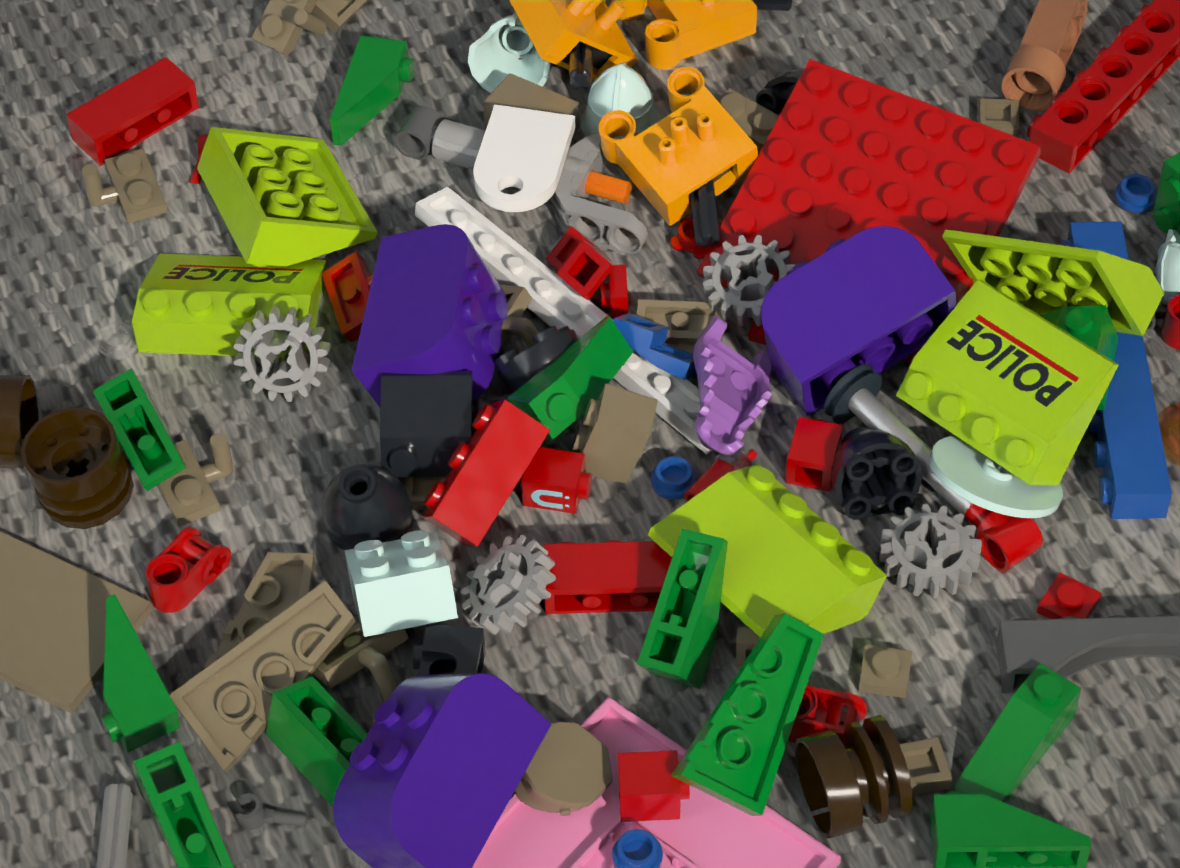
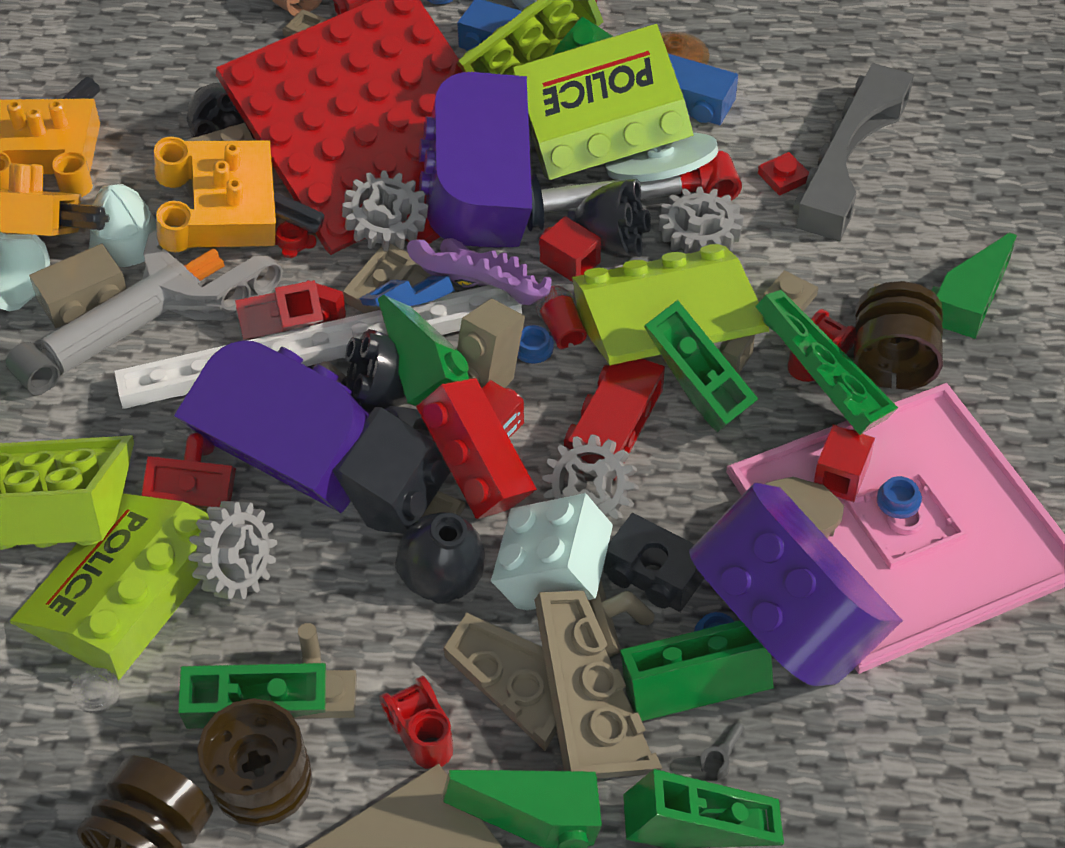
camera: 65 degrees left, 0 degrees up
(522, 152) = (135, 297): white tile -> none
(1021, 734) = (892, 236): green slope -> none

